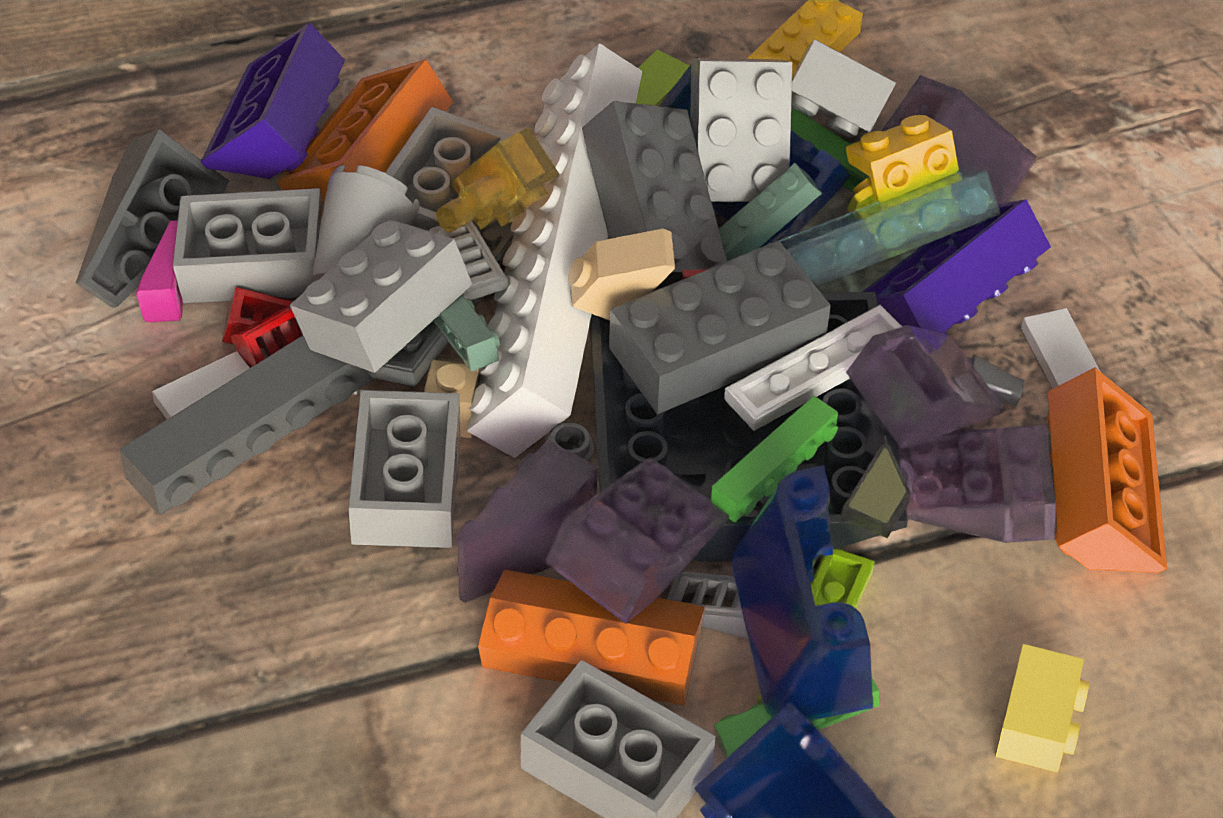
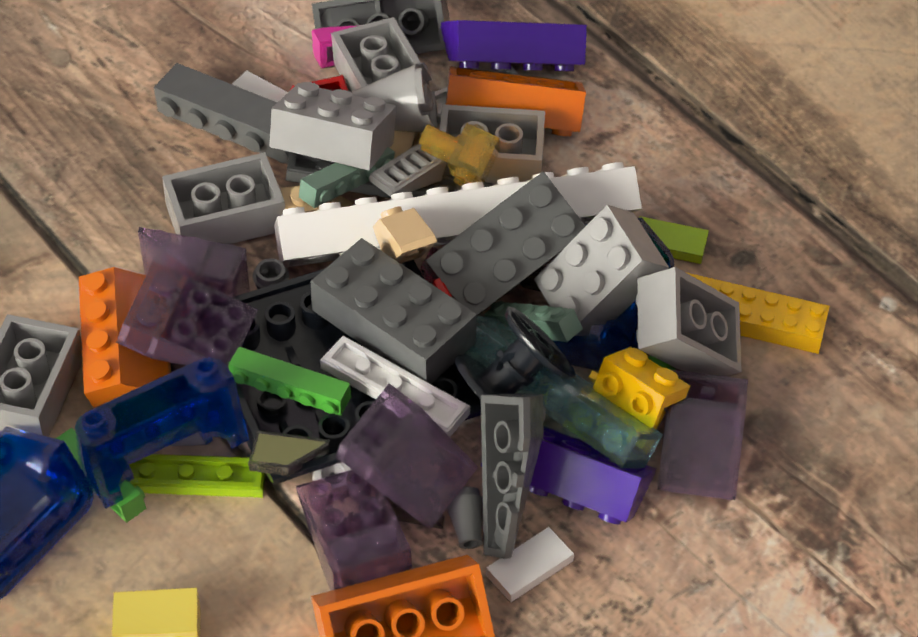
camera: 70 degrees right, 0 degrees up
(854, 238) = (518, 362): none -> black piece
(980, 286) = (509, 455): none -> dark grey wedge

